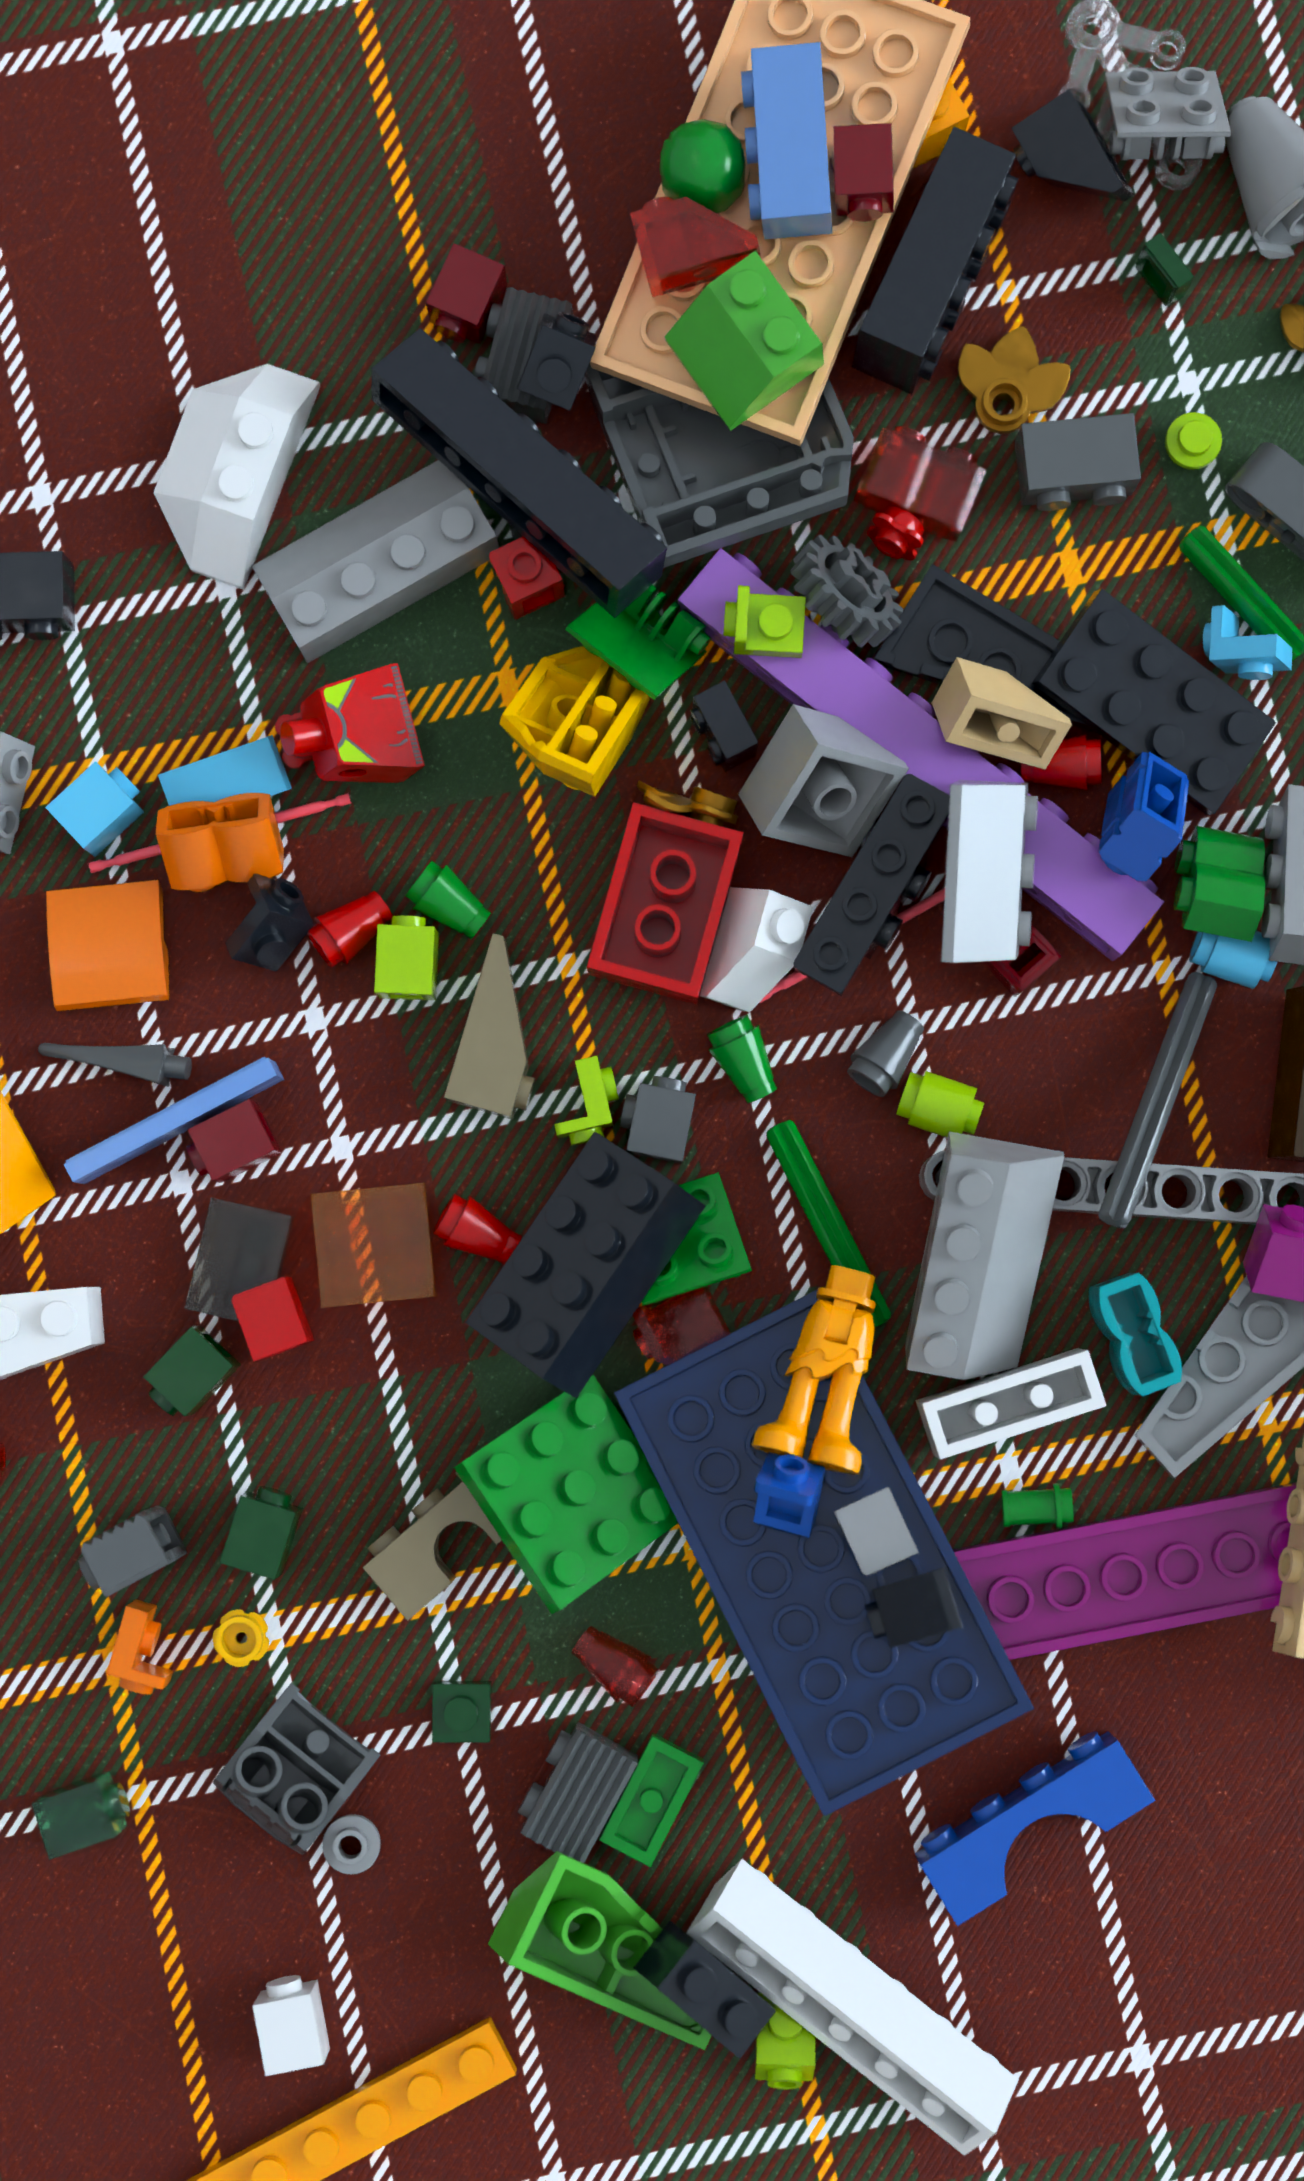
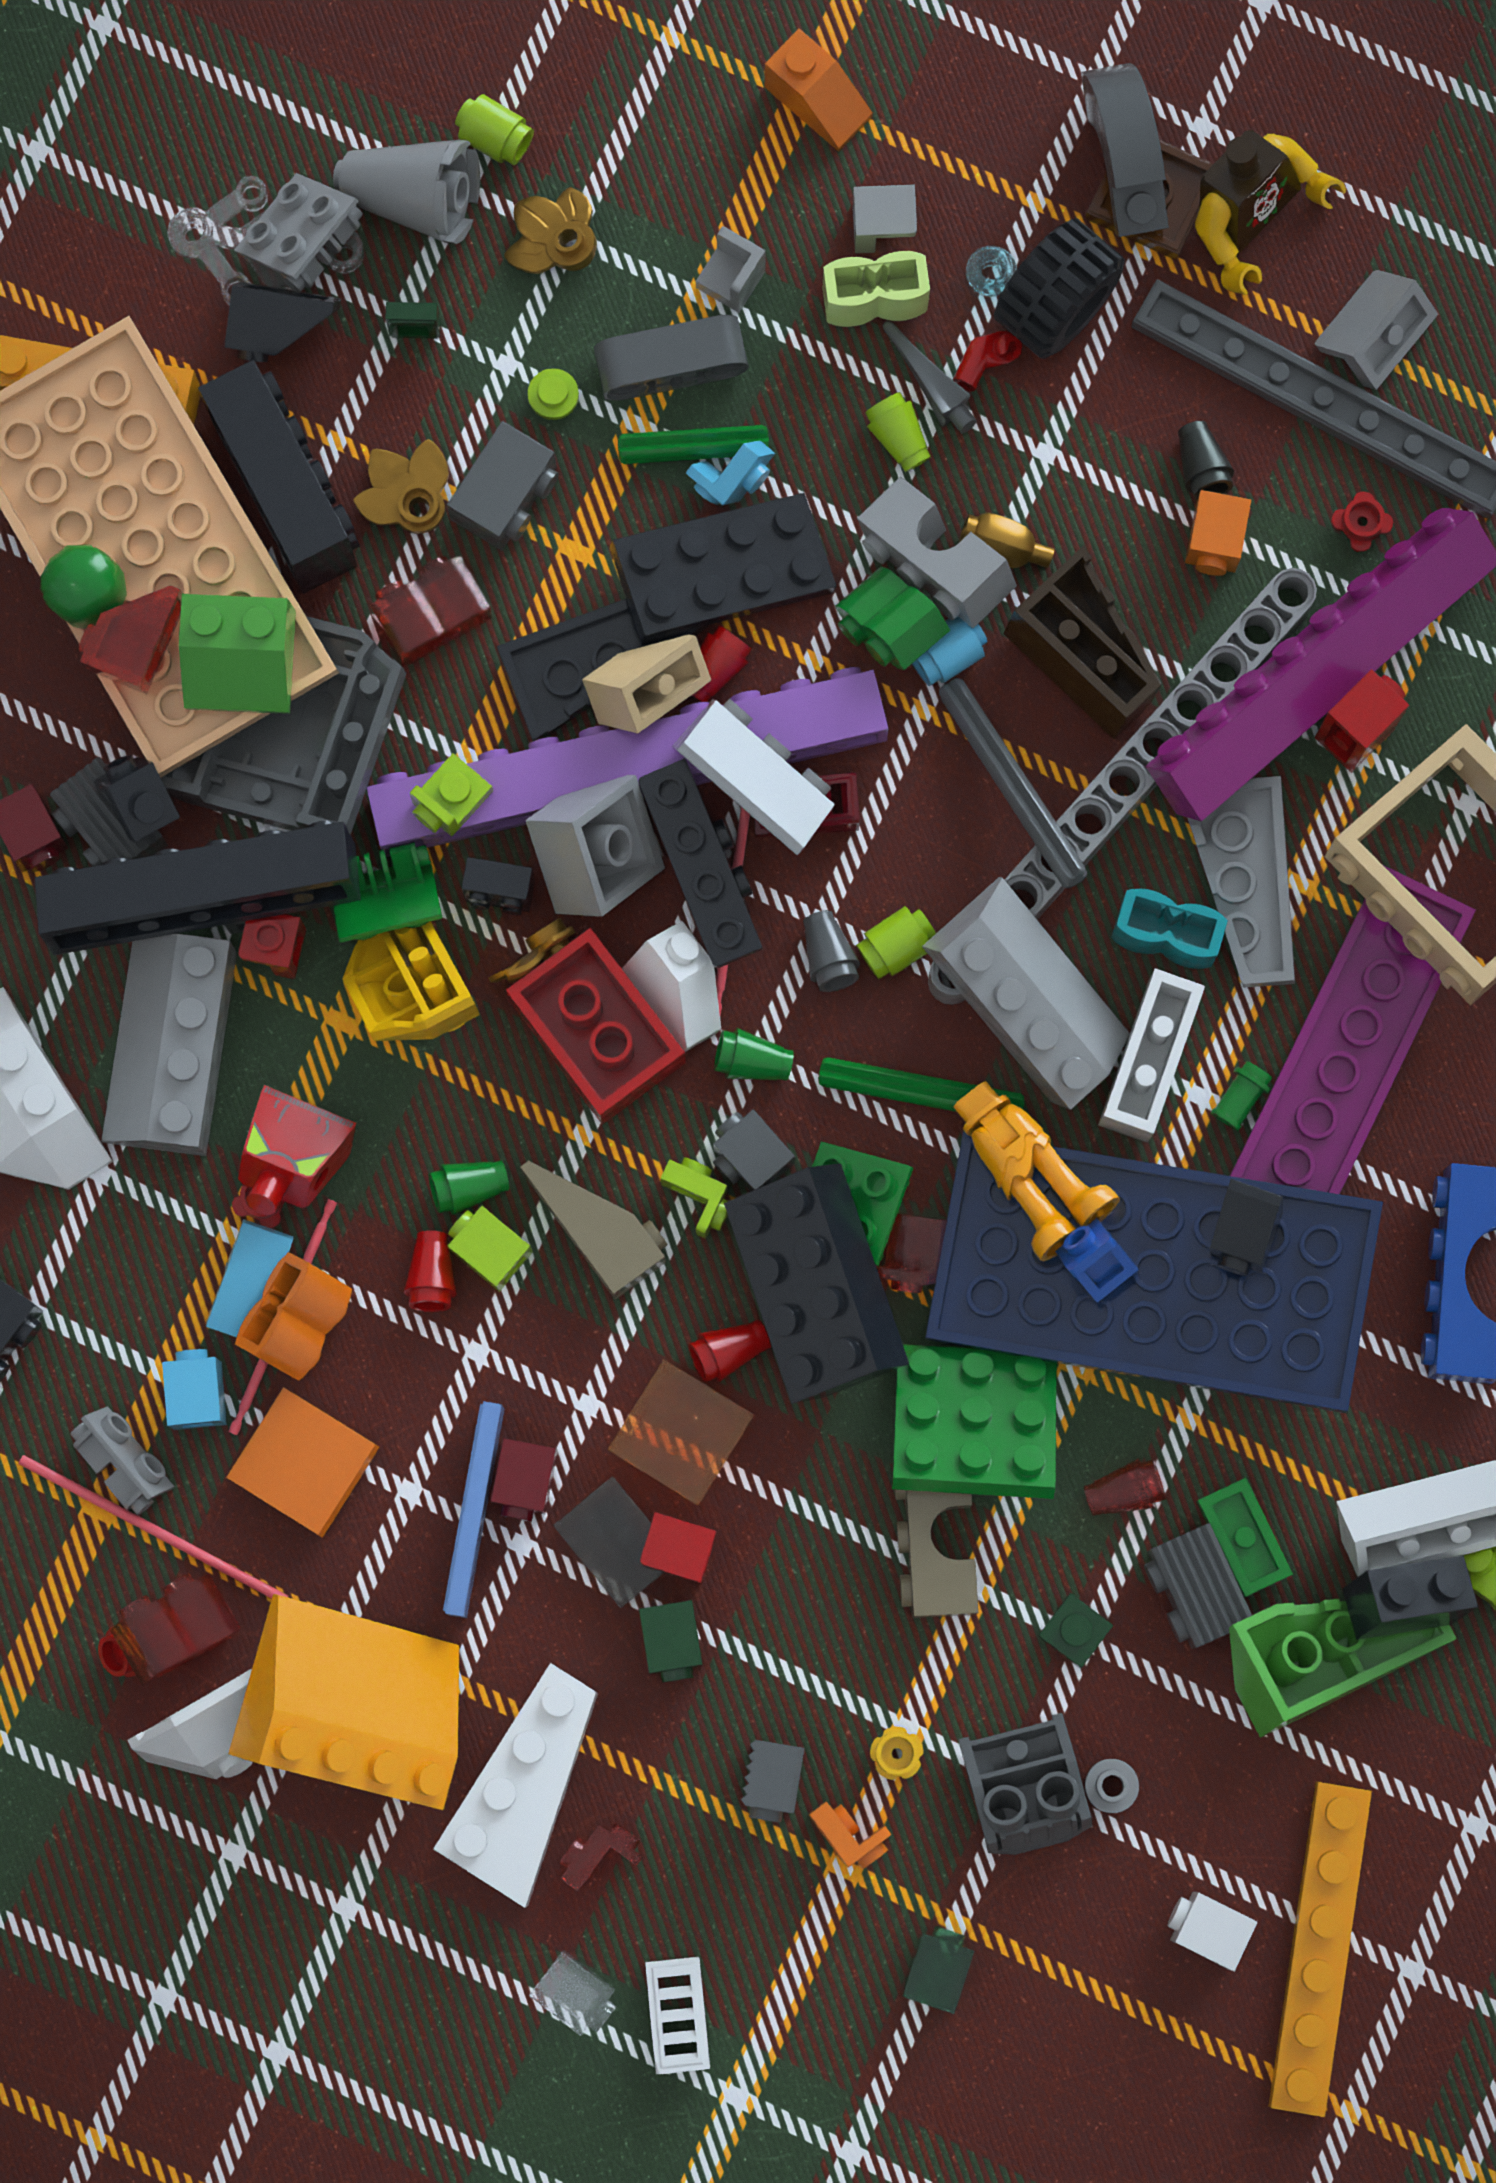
camera: 55 degrees left, 5 degrees down
(146, 1062) = (411, 1502): dark grey piece -> none
(262, 1532) = (830, 1675): dark green brick -> none
(272, 925) = (387, 1326): black bracket -> none
(788, 141) = (117, 510): medium blue brick -> none
(846, 591) = (470, 721): dark grey gear -> none
(863, 171) = (182, 475): dark red brick -> none
(876, 1531) = (1170, 1215): light grey panel -> none
(897, 533) = (453, 654): red plate -> none
(1144, 817) = (801, 637): blue brick -> none

